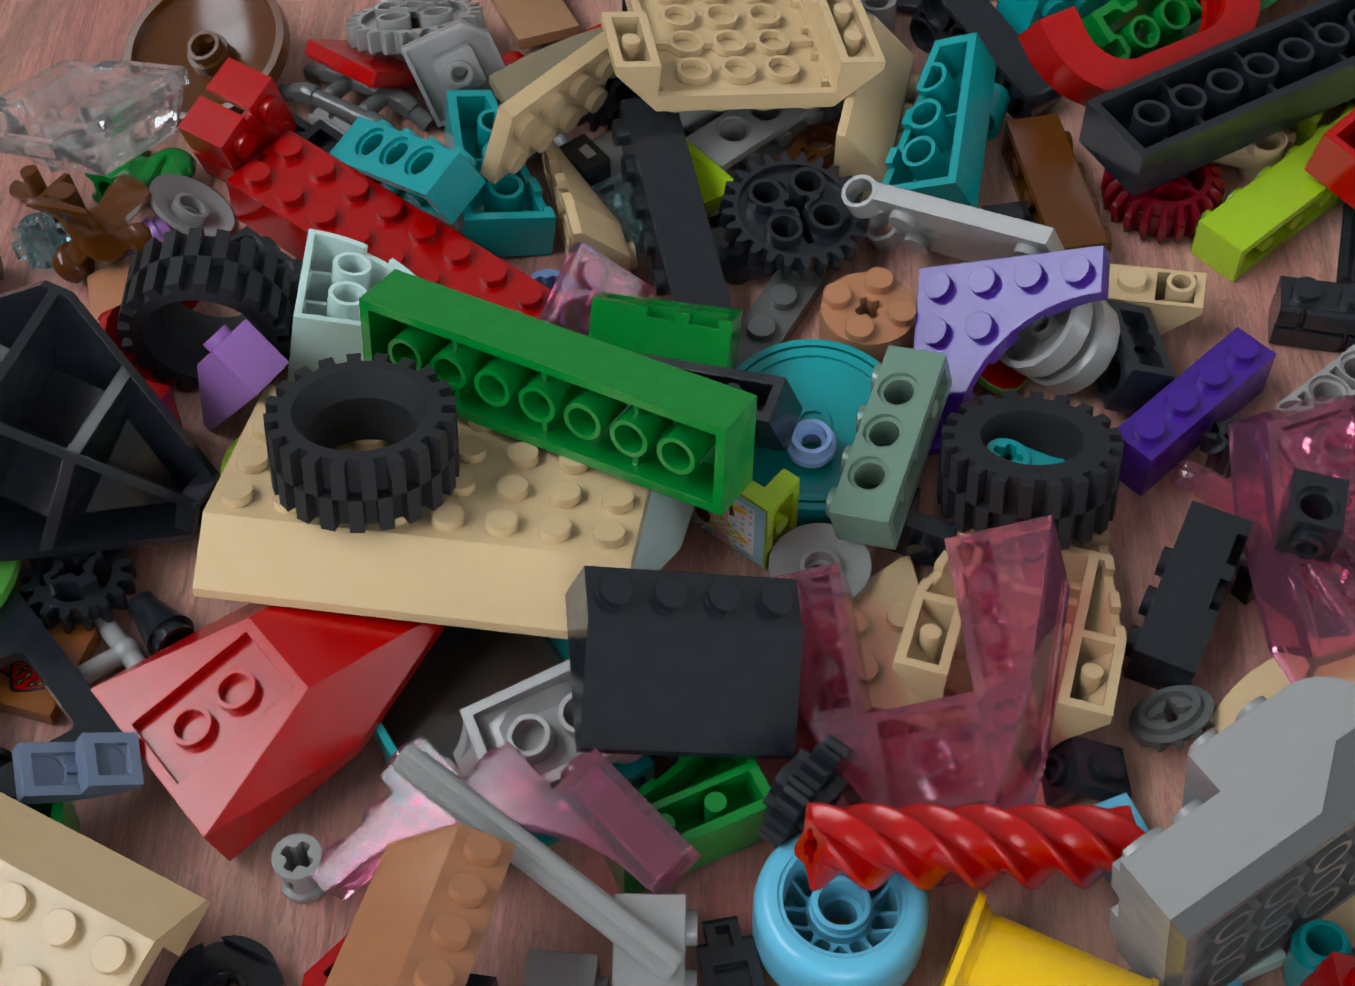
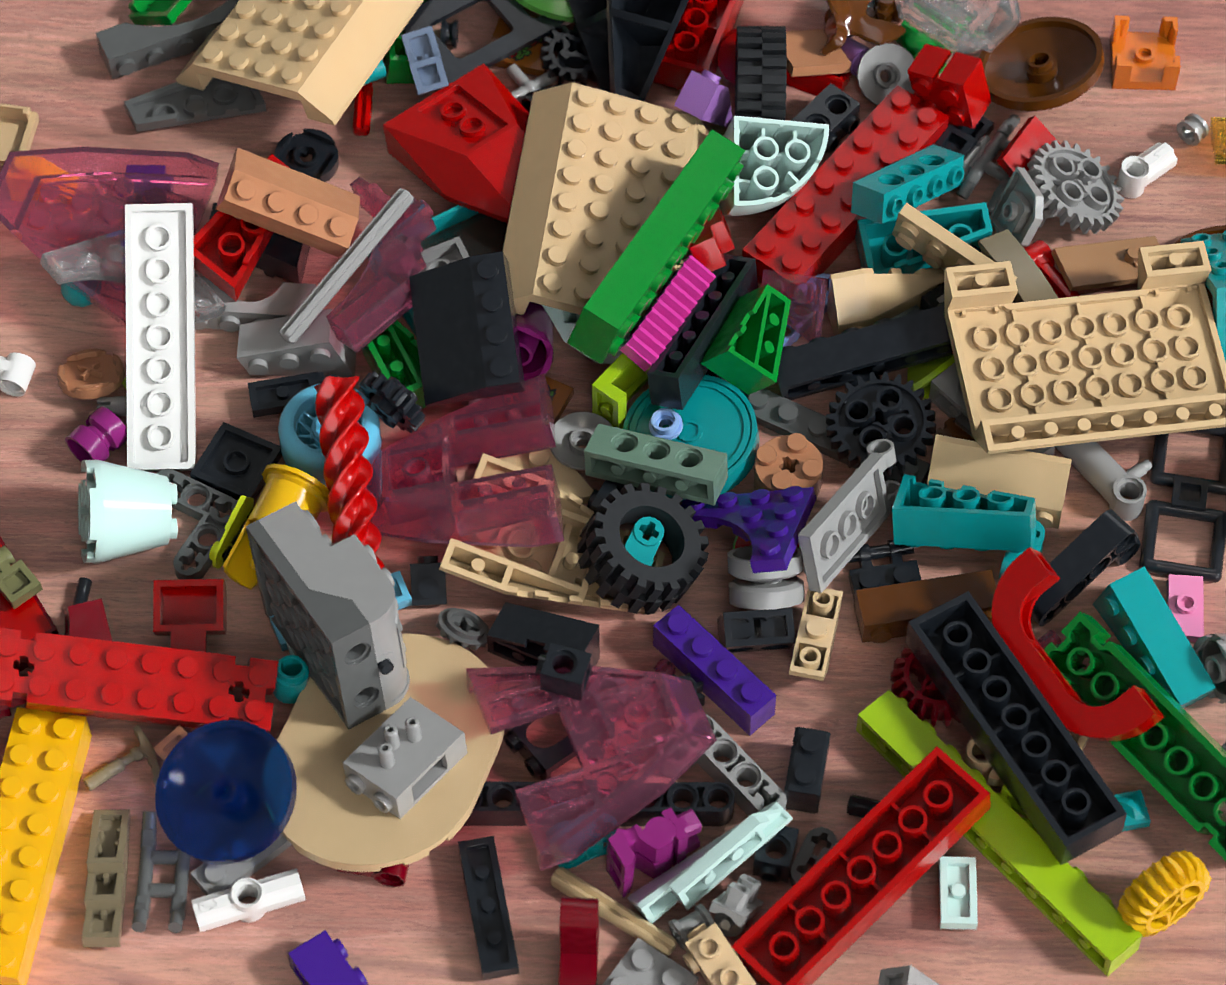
camera: 90 degrees right, 5 degrees up
(293, 863) = (381, 175): light grey bush -> none
(355, 404) = (616, 116): black tyre -> none

